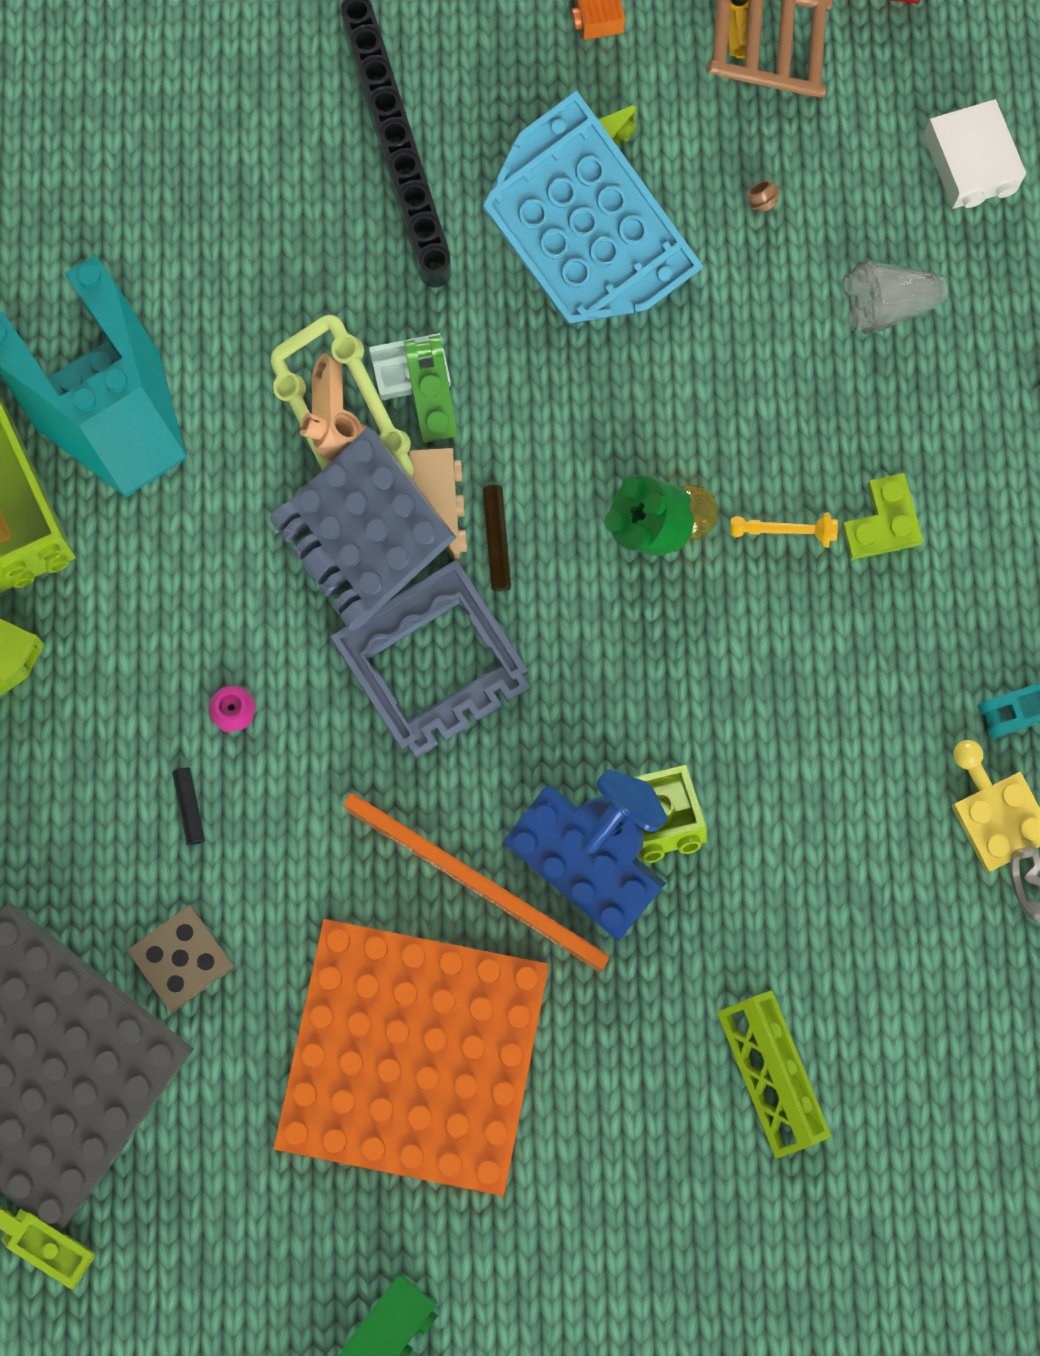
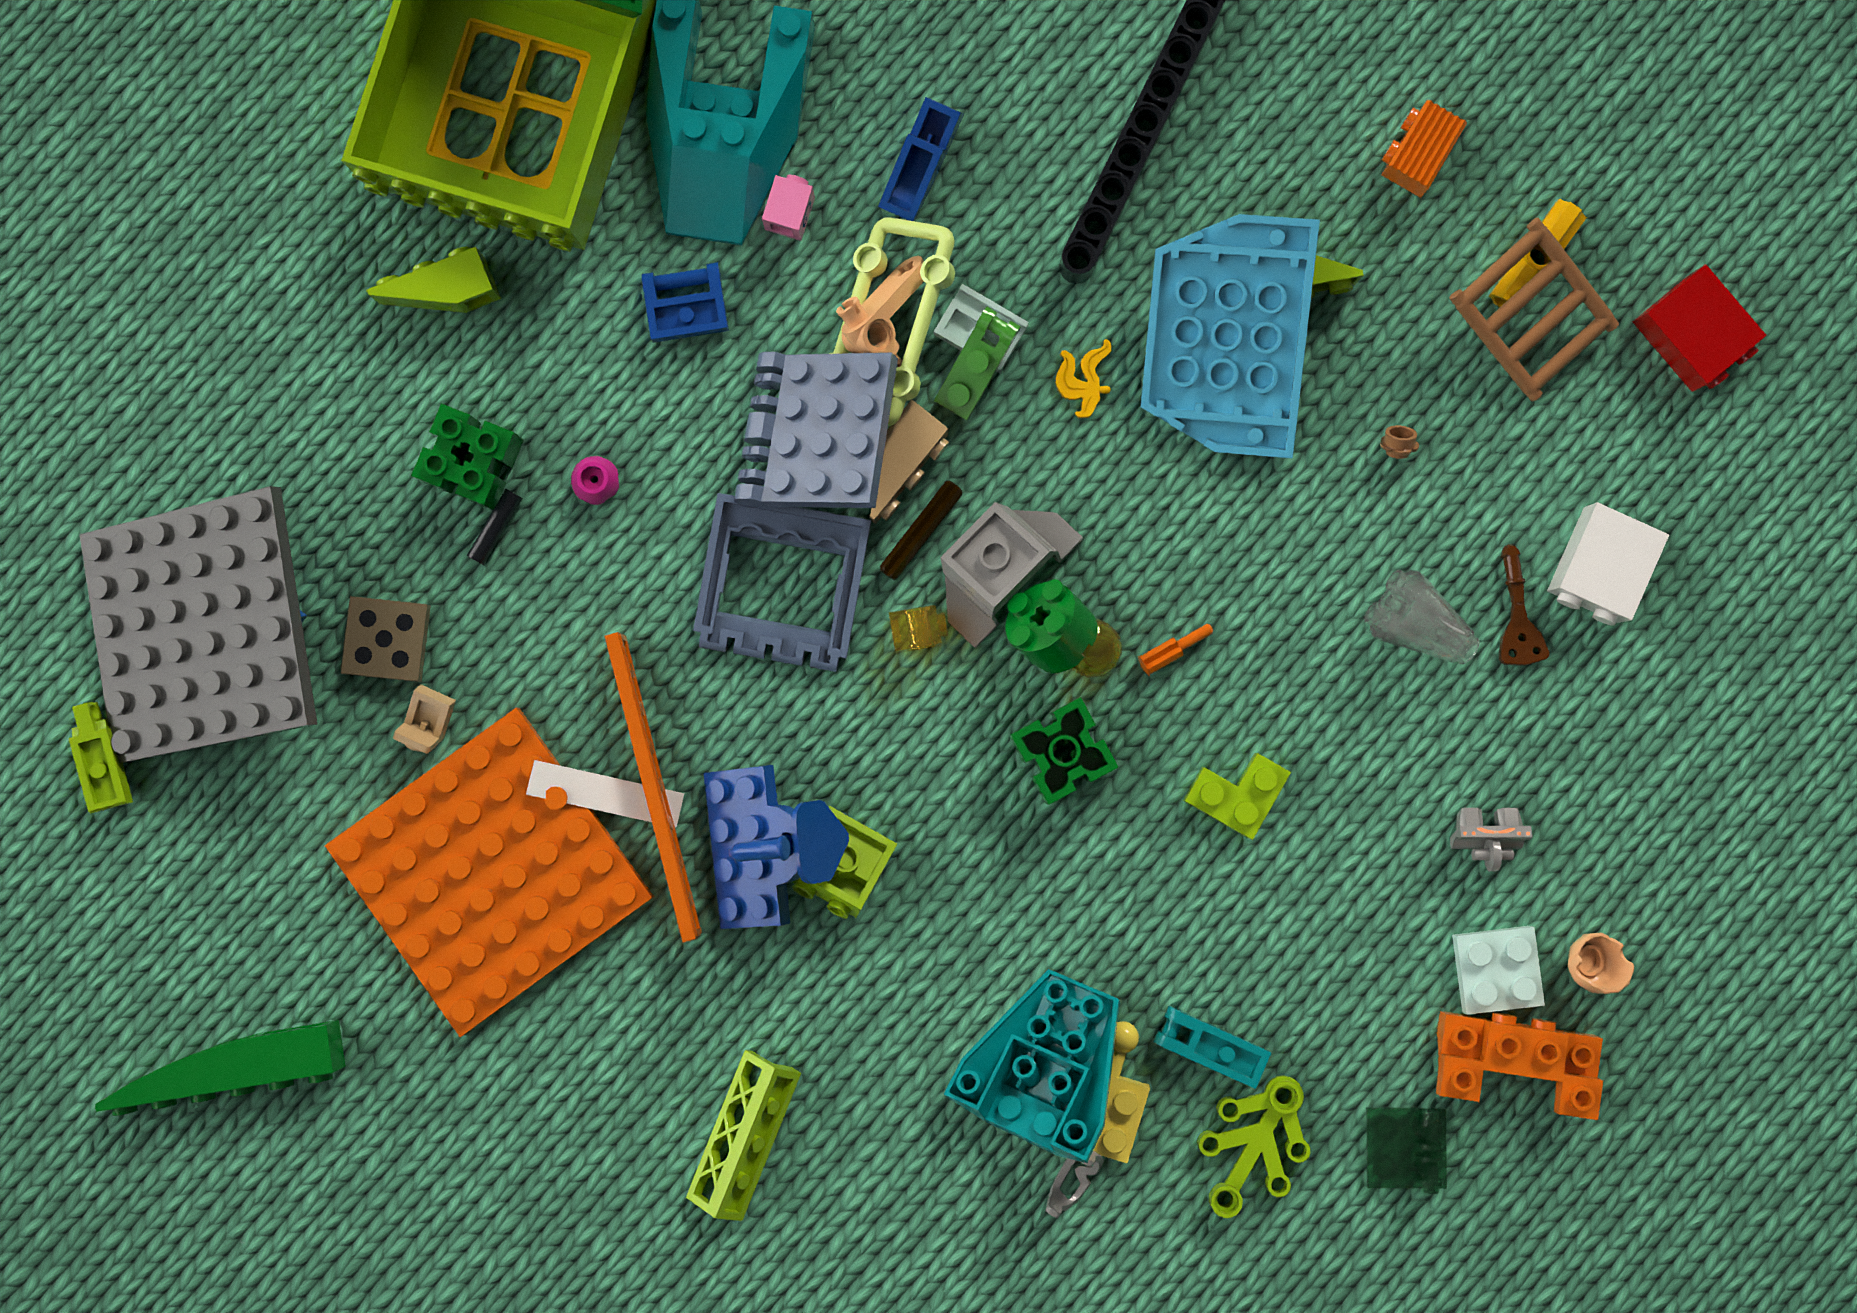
camera: 45 degrees right, 10 degrees up
(104, 760) = (456, 436): none -> green brick
(191, 537) = (685, 314): none -> blue plate
(198, 401) = (788, 206): none -> bright pink brick
(261, 291) = (920, 159): none -> blue slope
(265, 986) = (425, 720): none -> tan bracket
(438, 924) = (598, 791): none -> white sticker
(511, 353) = (1075, 389): none -> yellow piece
(558, 605) = (917, 628): none -> clear yellow brick
(570, 514) = (997, 561): none -> light grey piece
(745, 466) = (1171, 650): none -> orange axle
(759, 586) = (1086, 758): none -> green brick
(824, 529) = (1182, 759): yellow piece -> none
(938, 822) = (1045, 1067): none -> teal wedge
(955, 243) = (1519, 621): none -> reddish brown piece

